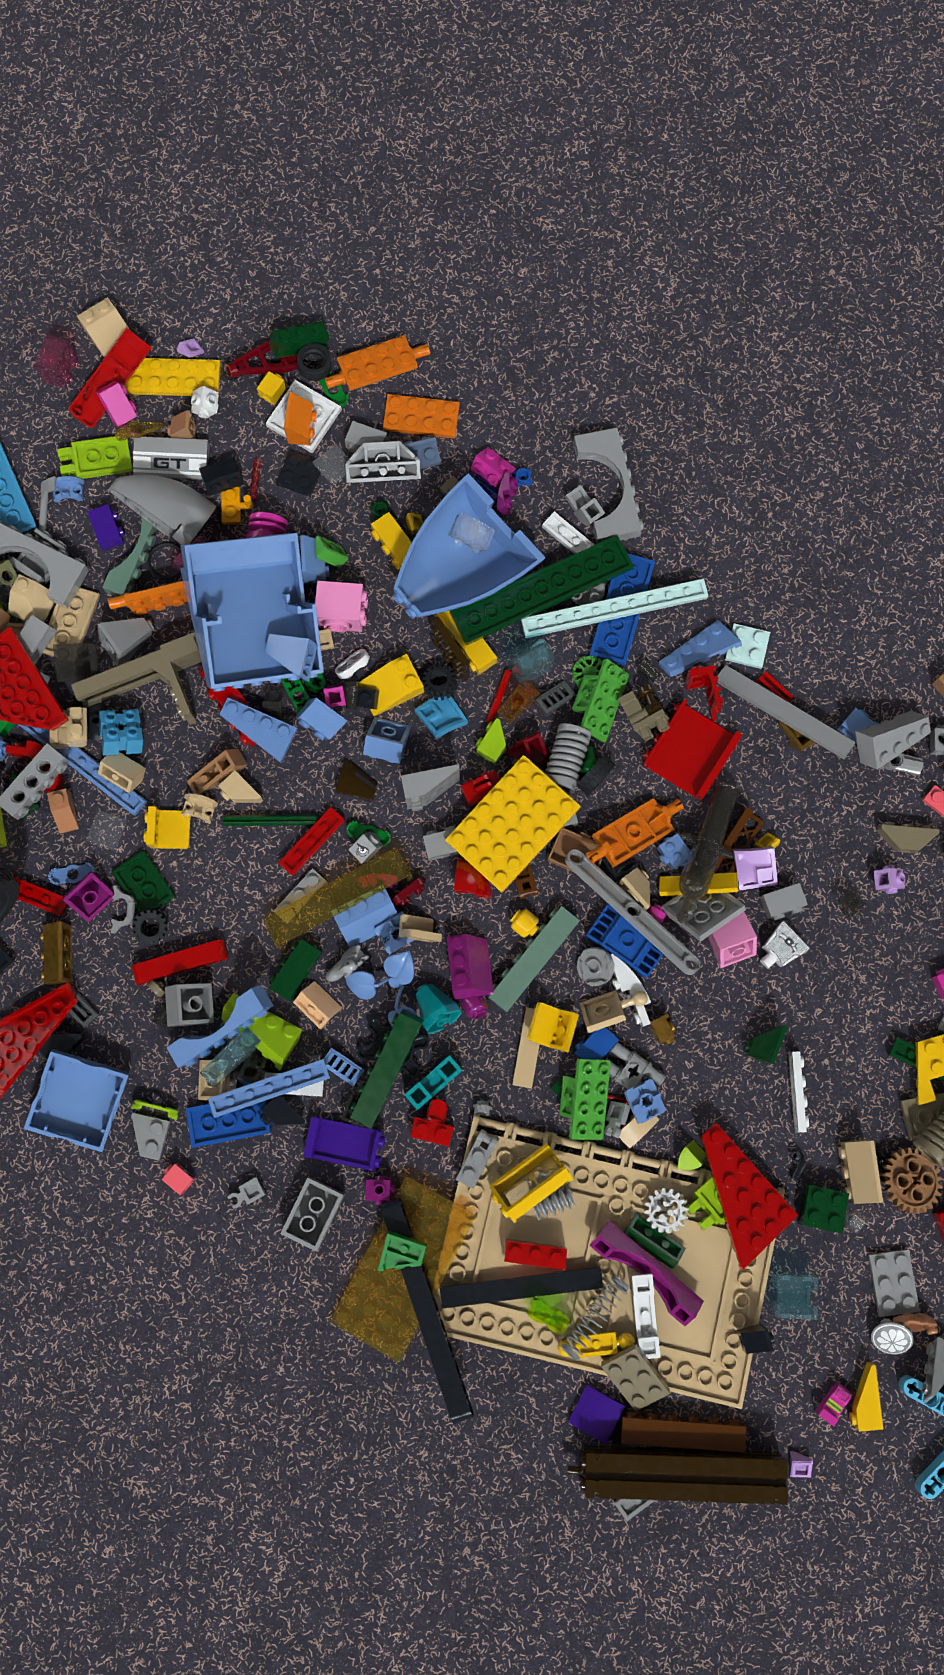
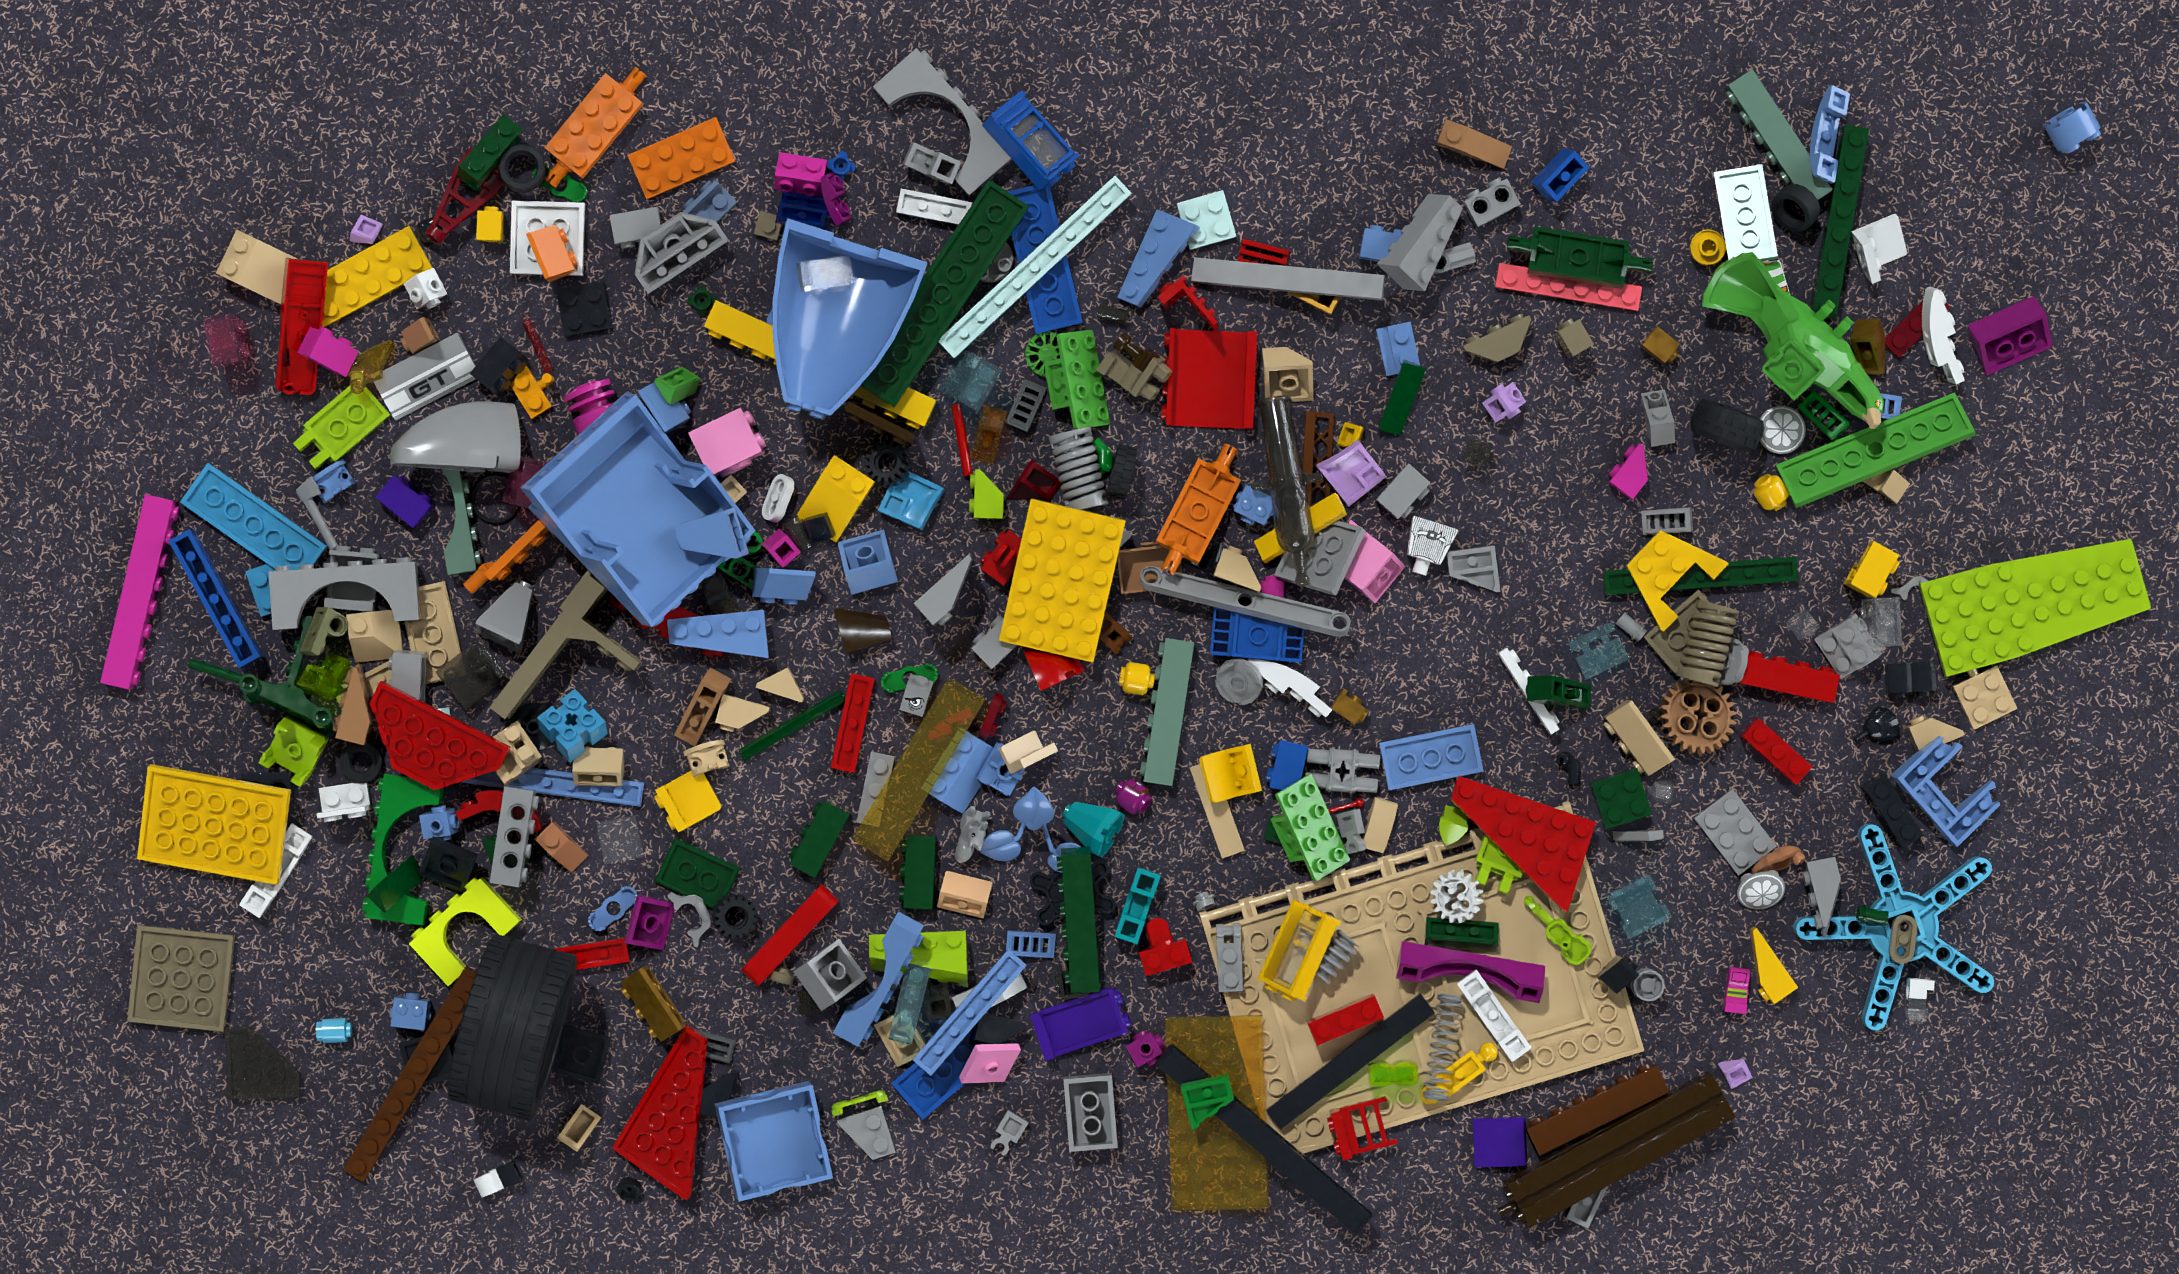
camera: 35 degrees left, 10 degrees up
(178, 1178) = (927, 1158): coral brick -> none
(240, 906) = (818, 838): none -> dark green brick
(262, 1134) = (989, 1063): none -> bright pink plate
(279, 787) = (782, 684): none -> tan slope
(332, 464) = (616, 276): clear piece -> none
(414, 523) = (751, 292): yellow slope -> none
(469, 966) = (1104, 760): magenta slope -> none
(488, 1333) = (1344, 1130): none -> red plate
(608, 1009) = (1277, 720): tan plate -> none
(635, 1377) = (1517, 1082): dark tan plate -> none
(655, 1105) = (1385, 794): medium blue piece -> none
(659, 527) = (1031, 141): none -> blue door
(702, 1099) = (1431, 757): none -> medium blue plate
(731, 1299) = (1574, 947): none -> lime piece
(748, 775) = (1287, 374): none -> tan slope
(766, 1046) = (1466, 662): dark green slope -> none
(772, 1361) = (1648, 984): none -> light grey wheel
(806, 982) = (1475, 566): none -> light grey wing
(818, 836) = (1401, 397): none -> dark green slope
(820, 1103) = (1558, 692): none -> dark green slope
(821, 1243) = (1640, 835): none -> light grey tile
(832, 803) = (1397, 345): none -> medium blue plate
(861, 1098) = (1601, 658): none -> clear light blue plate
(895, 1089) = (1630, 626): none -> light grey pin

